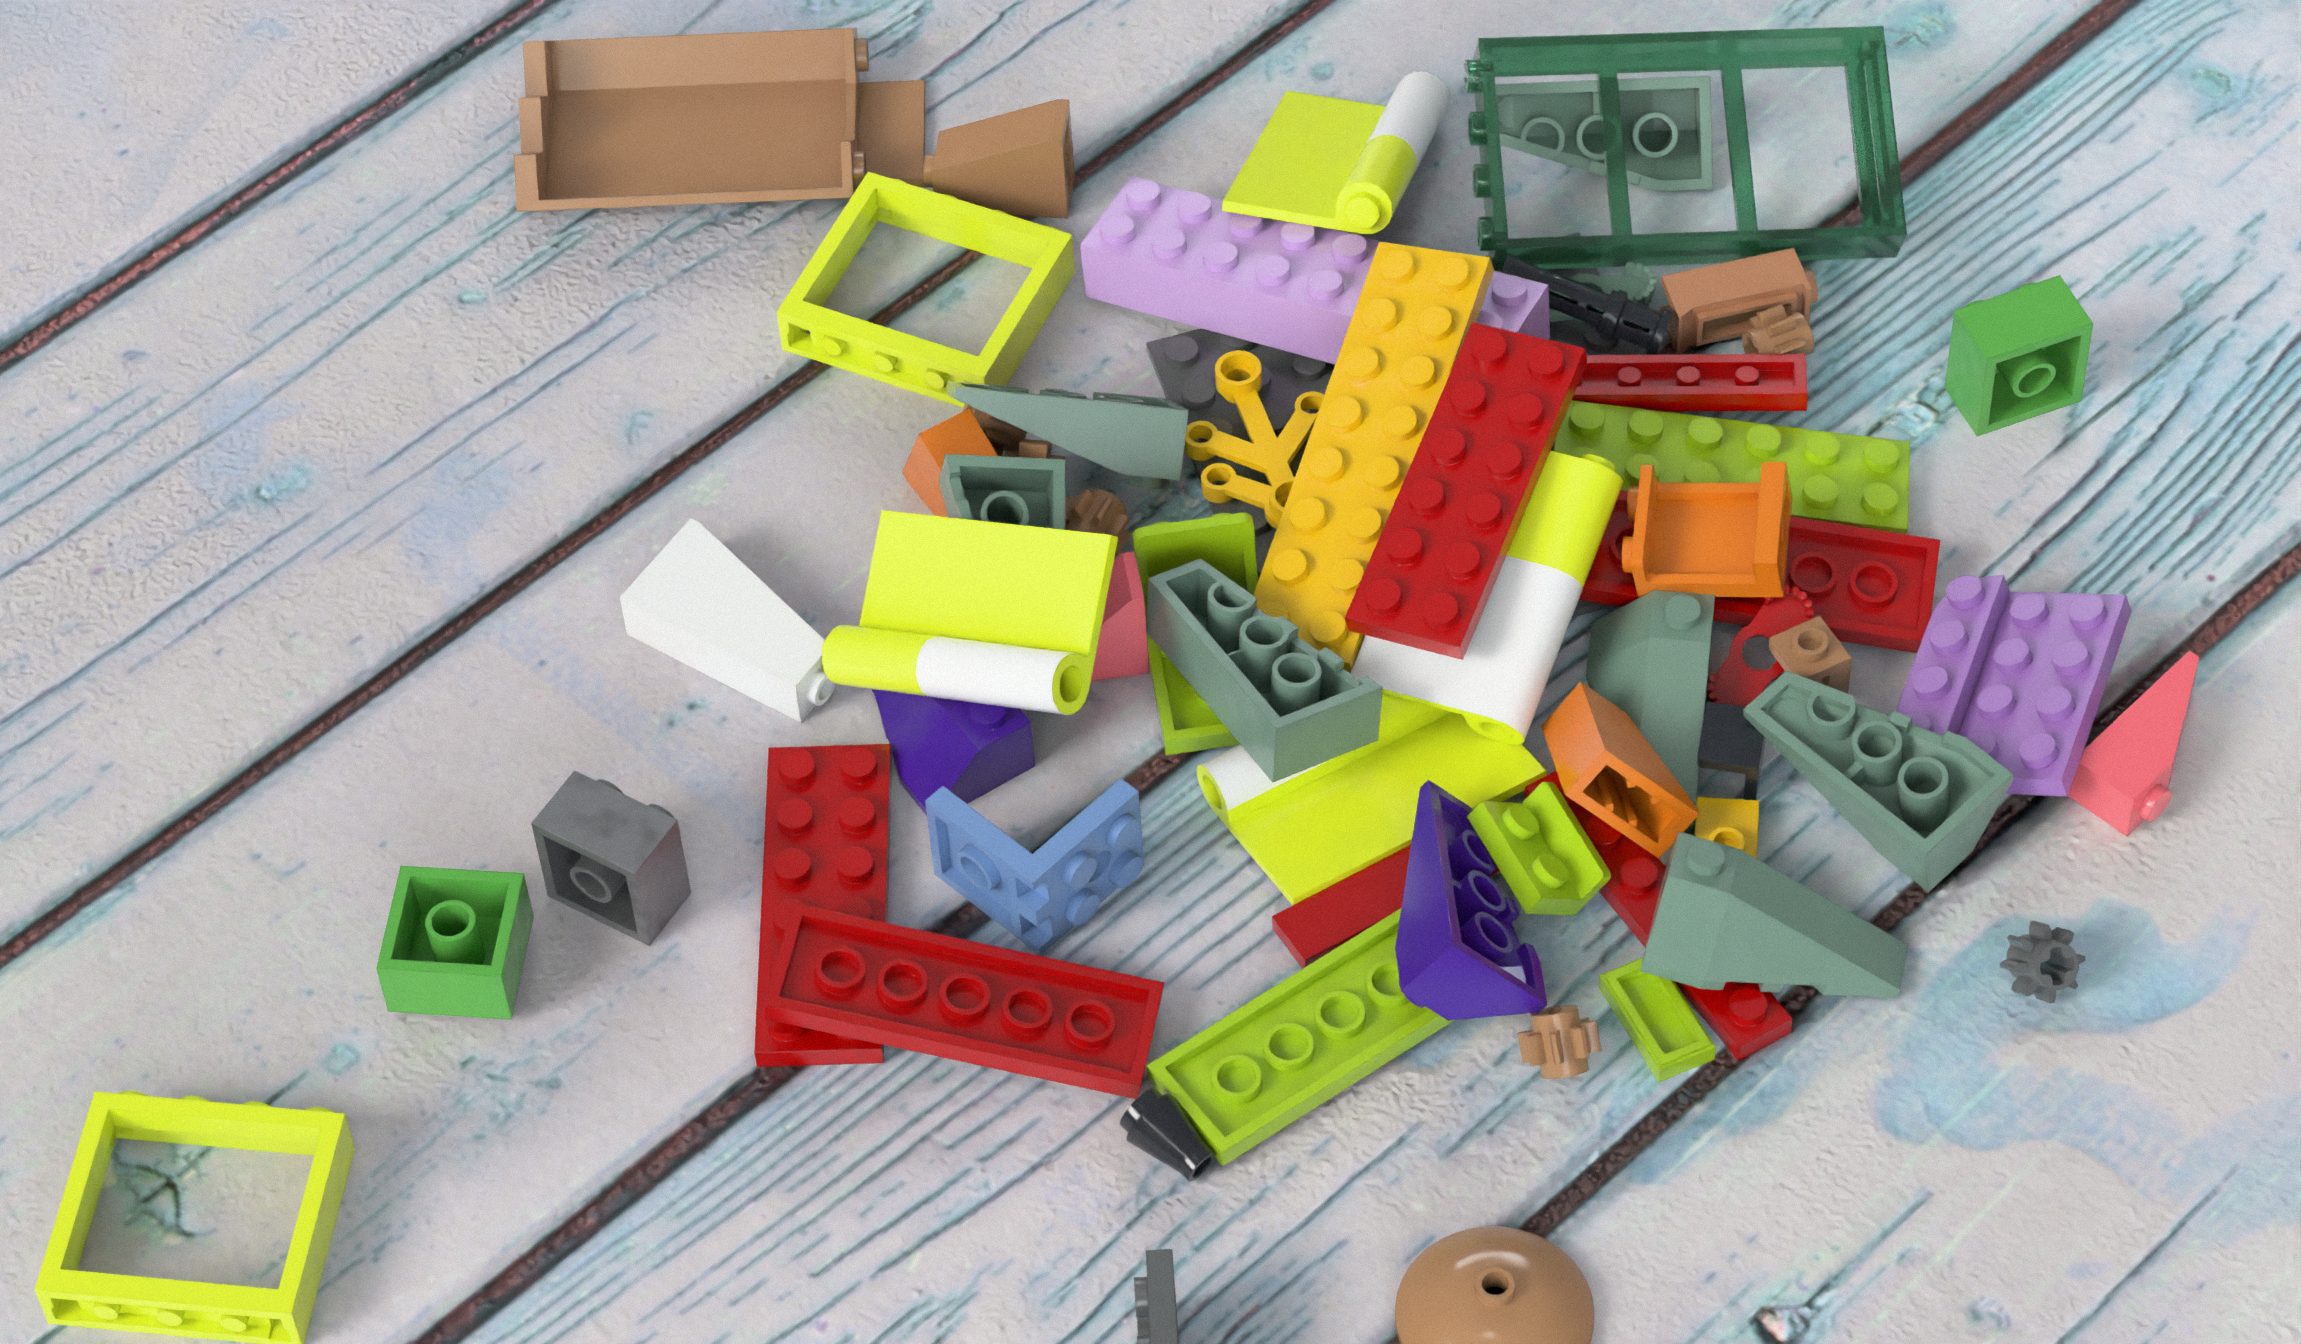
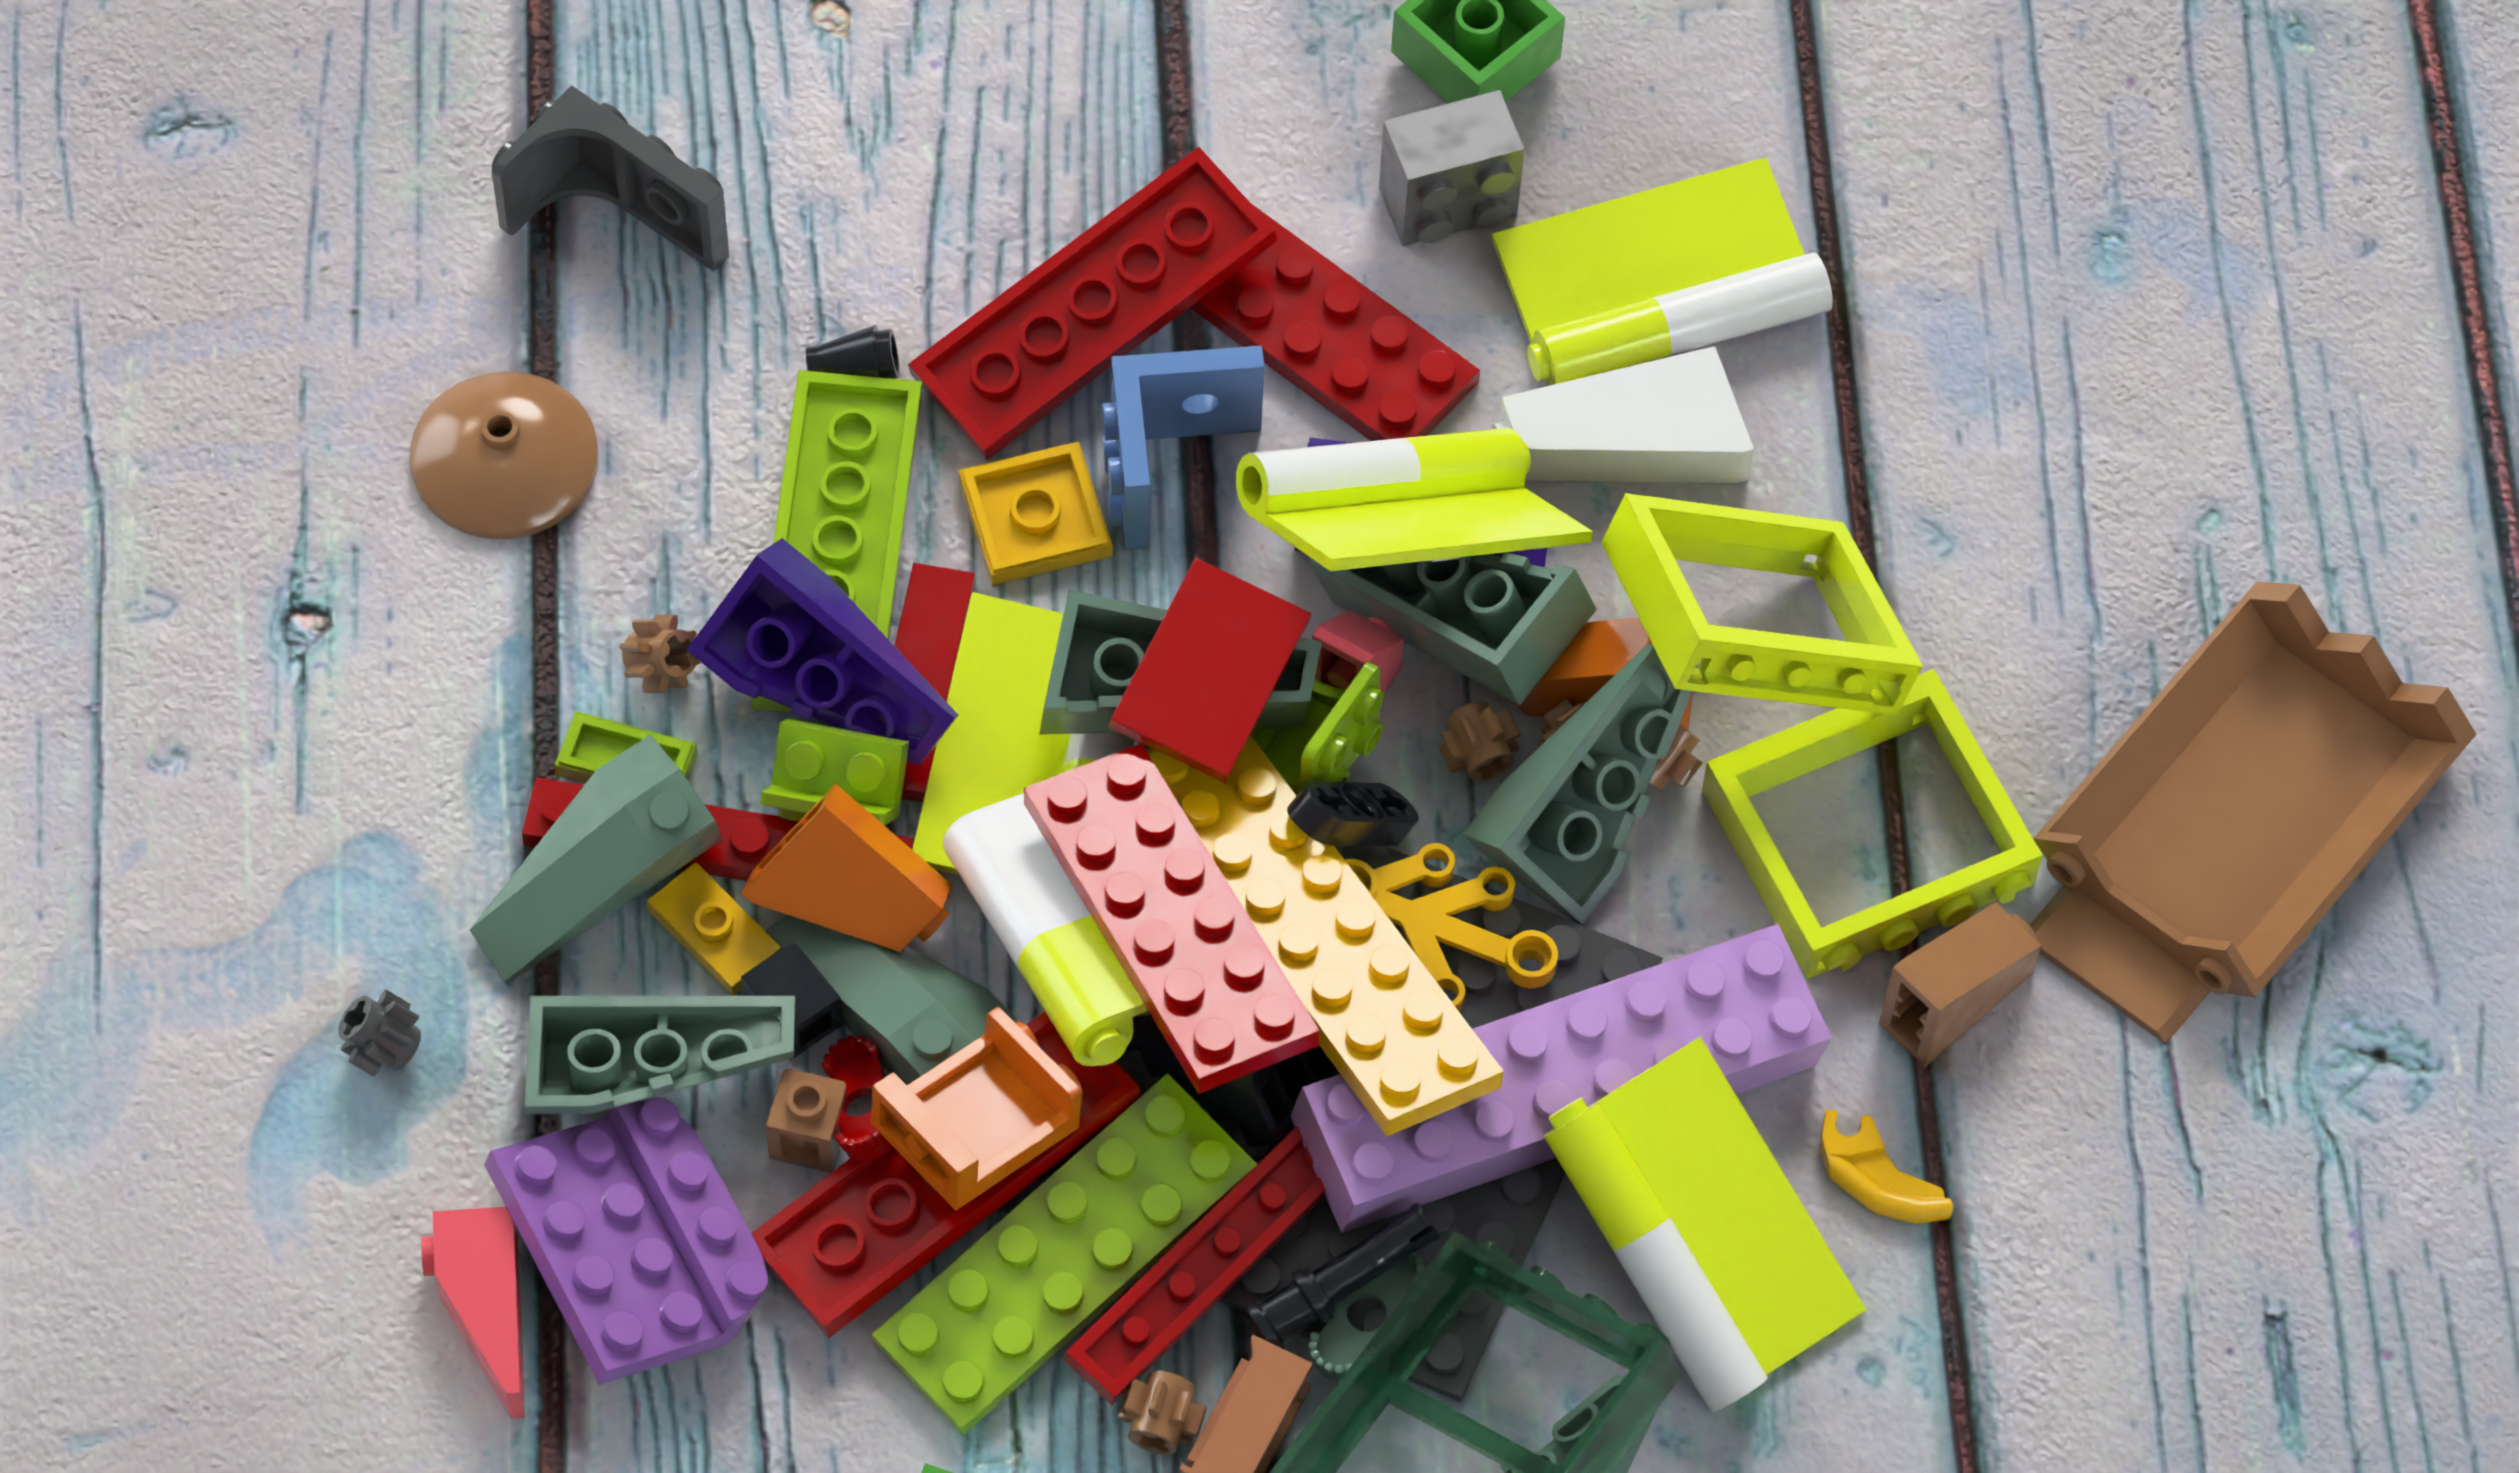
camera: 125 degrees right, 10 degrees up
(569, 696) = (1659, 273): none -> neon yellow door
(898, 424) = (1863, 674): none -> neon yellow window
(1175, 931) = (1035, 513): none -> yellow tile
(1190, 149) = (1869, 1176): none -> yellow piece
(1247, 609) = (1210, 670): none -> red tile
(1270, 499) = (1352, 813): none -> black beam

